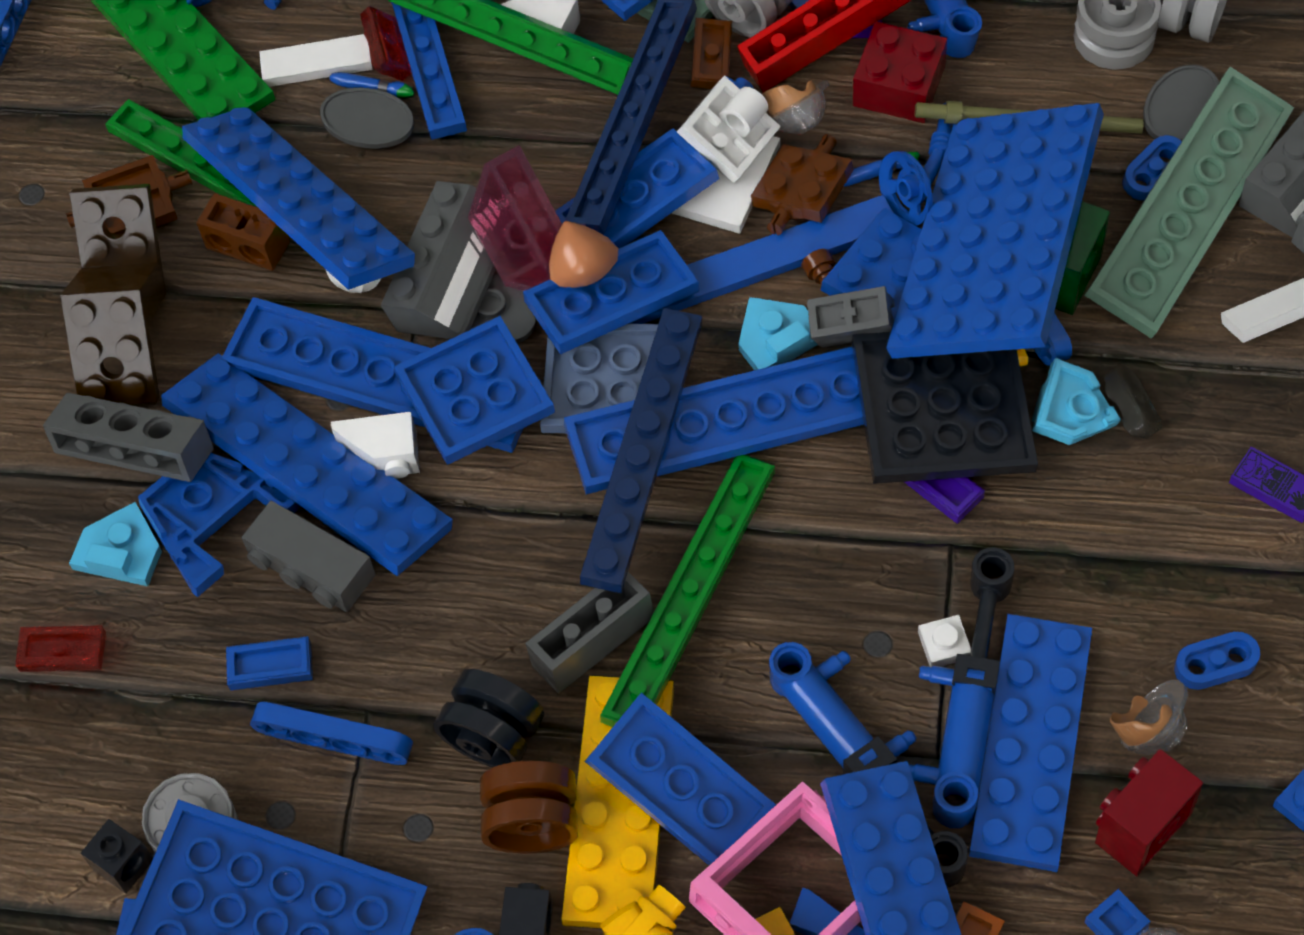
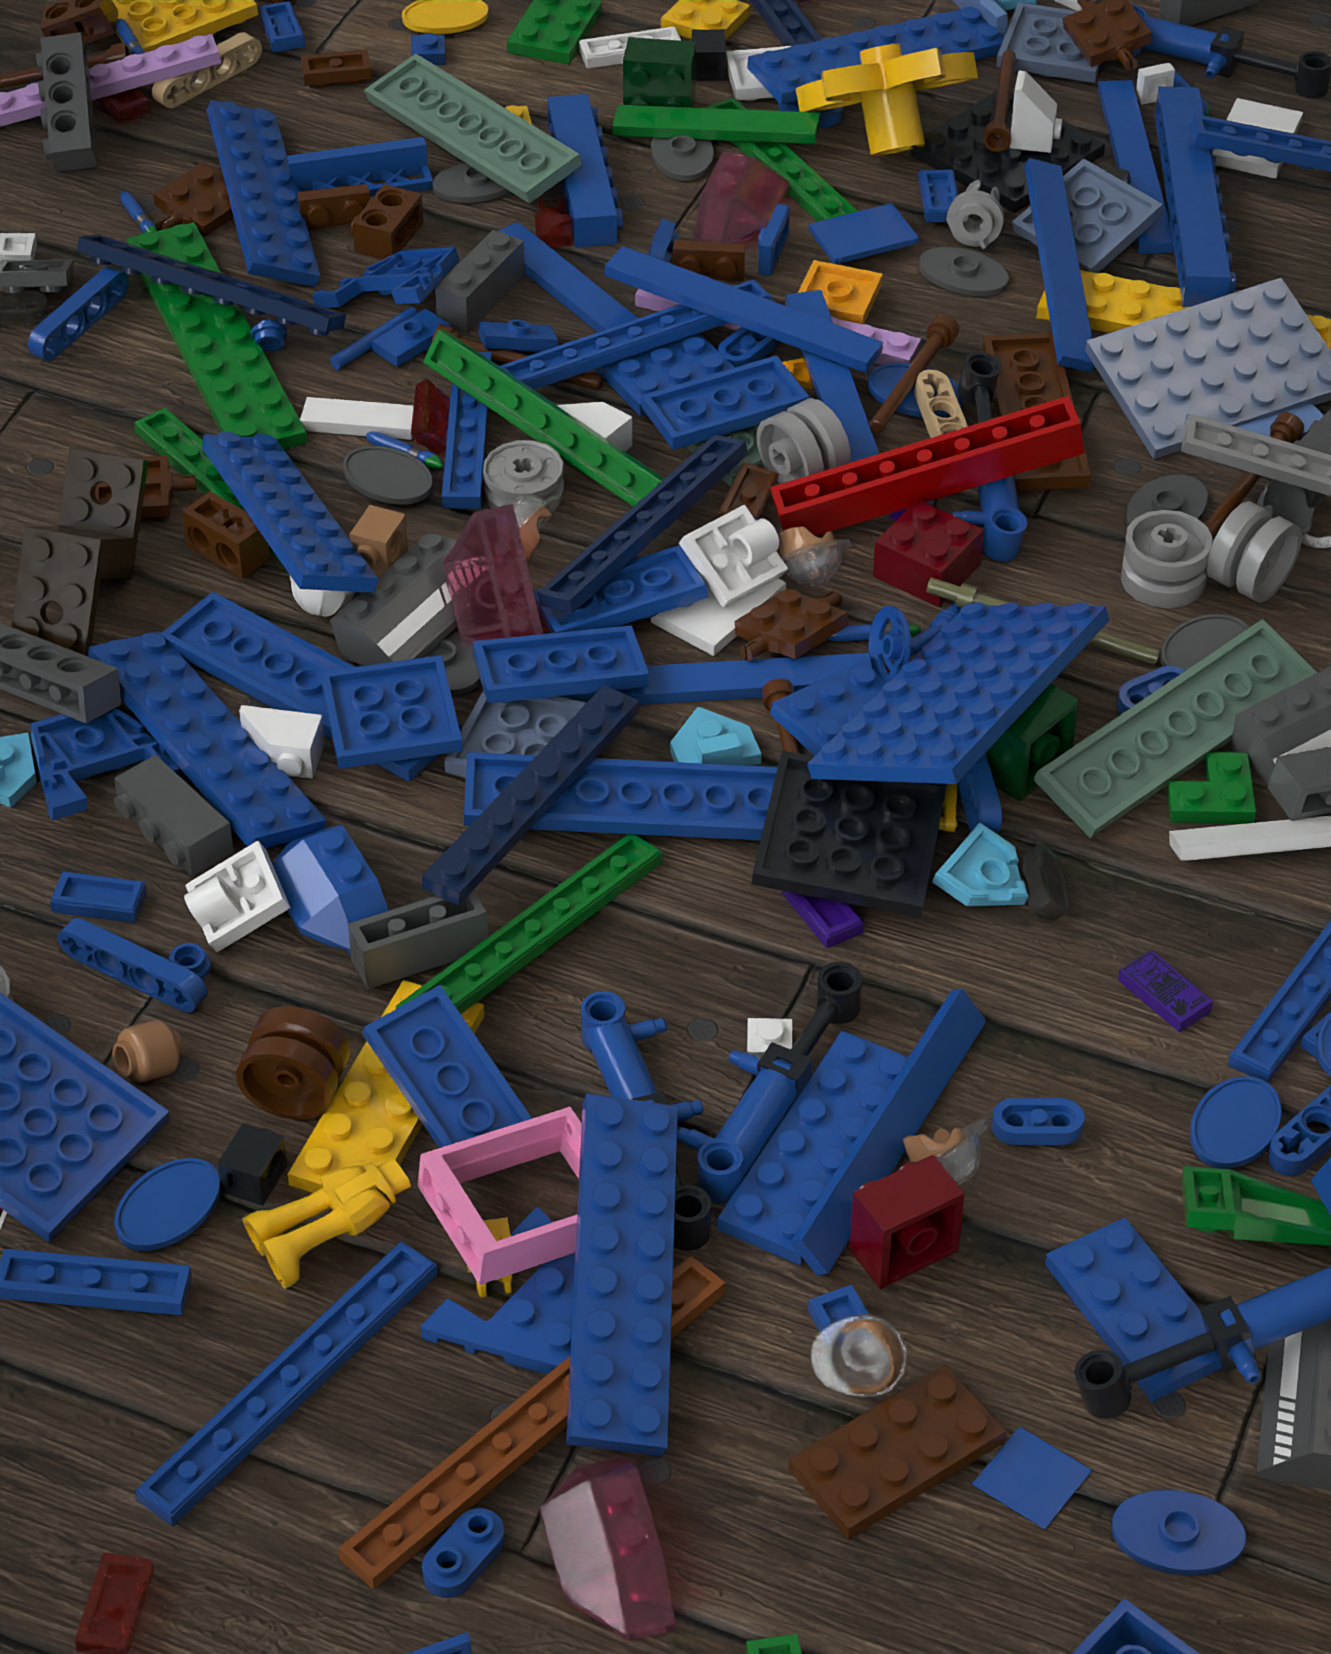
camera: 10 degrees right, 15 degrees down
(382, 826) = (147, 1051): none -> medium nougat head
(383, 704) = (191, 957): none -> blue plate
(397, 204) = (380, 538): none -> medium nougat brick
(403, 632) = (236, 896): none -> white plate
(482, 594) = (328, 885): none -> blue wedge
(488, 718) = (286, 971): black wheel -> none
(497, 90) = (522, 469): none -> light grey wheel
(520, 131) = (531, 515): none -> piece
(580, 256) = (539, 619): nougat piece -> none
(840, 316) = (787, 729): dark grey hinge -> none
(1090, 713) = (896, 1116): none -> blue tile
(1253, 259) = (1221, 799): none -> green plate

